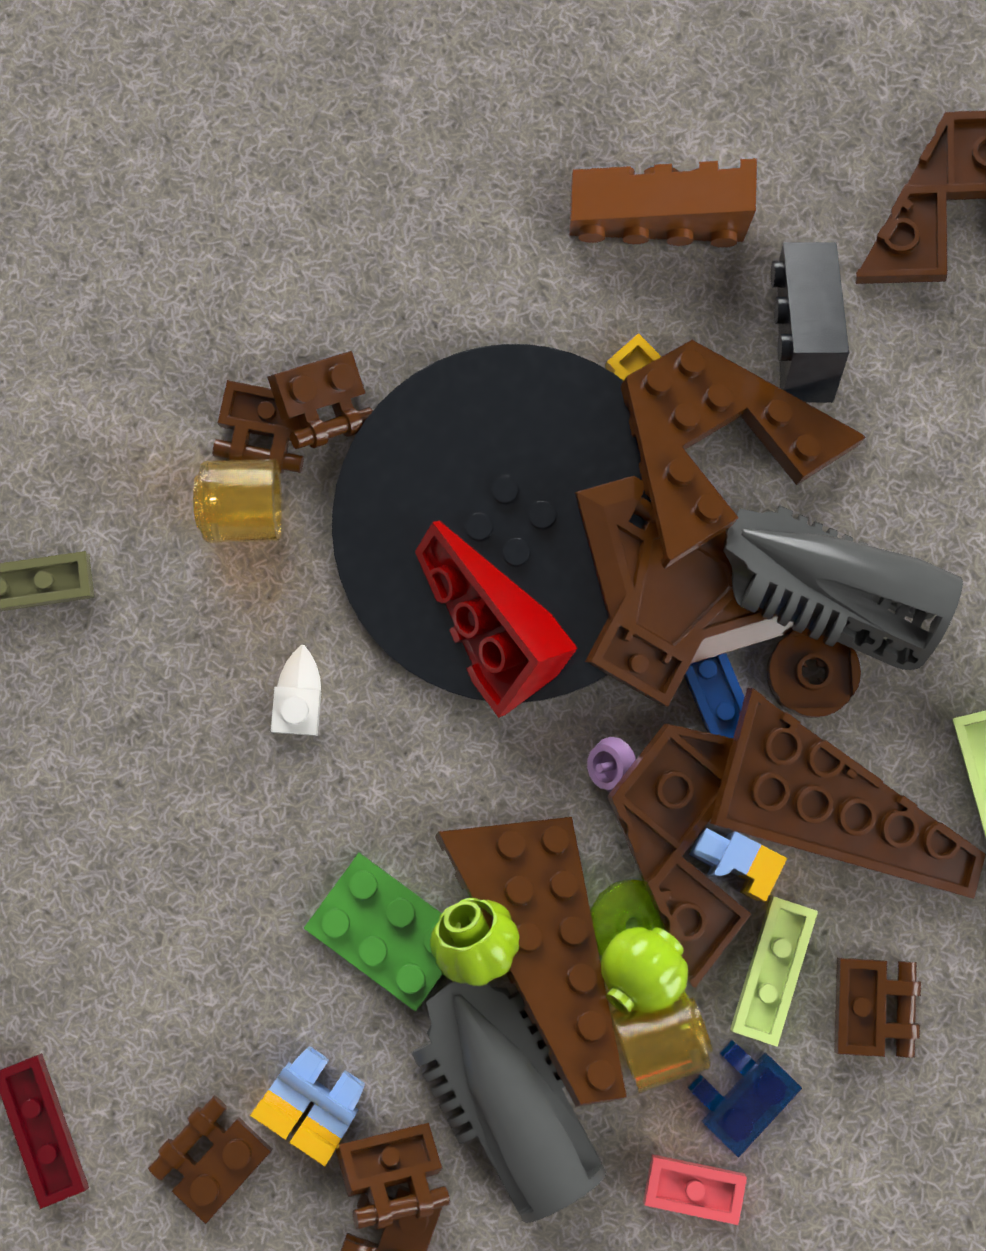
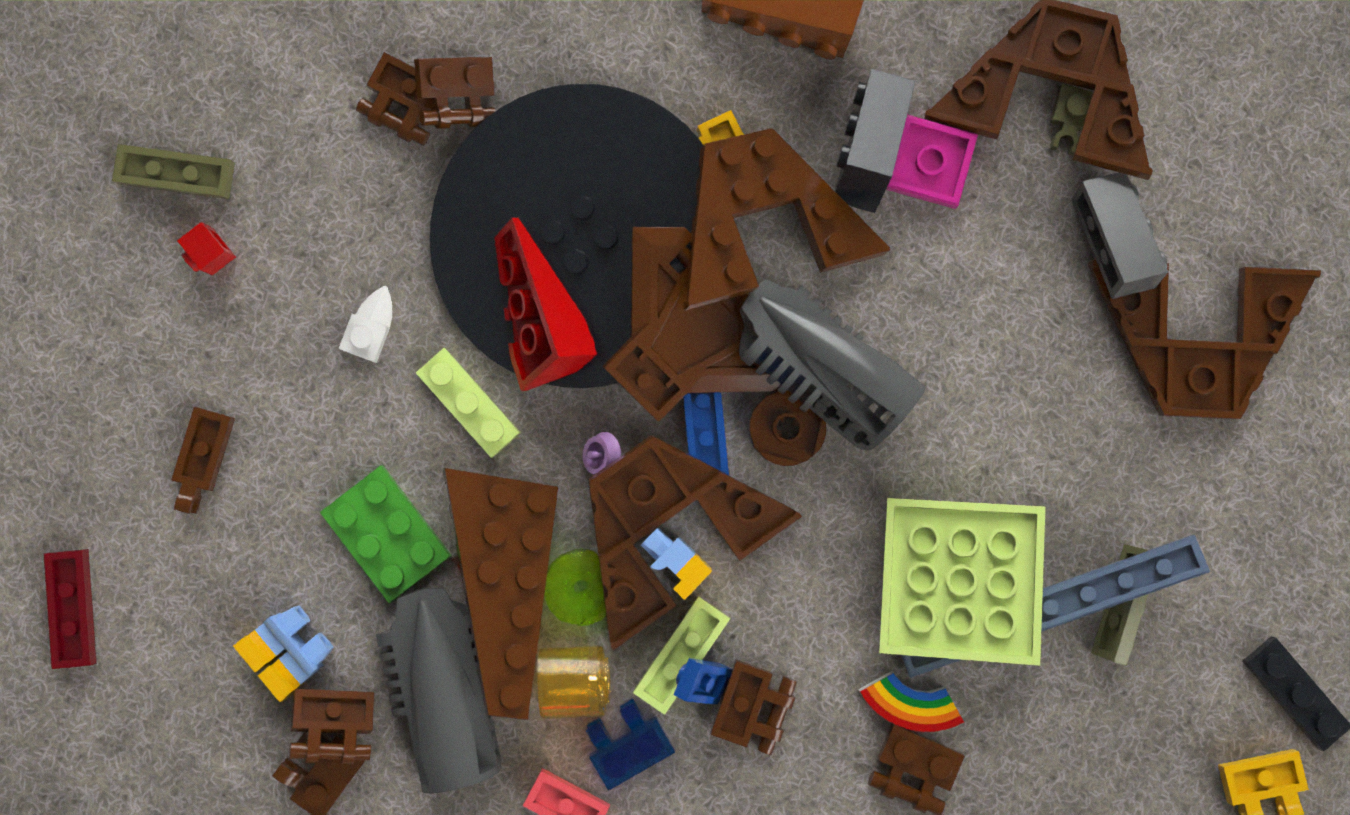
camera: 15 degrees right, 5 degrees up
(84, 662) = (205, 249): none -> red plate
(146, 903) = (200, 457): none -> reddish brown plate
(223, 1167) = (202, 680): reddish brown plate -> none
(238, 500) = (364, 154): clear yellow piece -> none
(438, 750) = (468, 402): none -> yellowish green plate
(467, 946) = (440, 567): lime plant -> none
(644, 970) = (574, 625): lime plant -> none
(810, 993) = (702, 681): none -> blue plate
(817, 799) = (753, 529): reddish brown wing -> none
(885, 326) = (932, 162): none -> dark pink plate

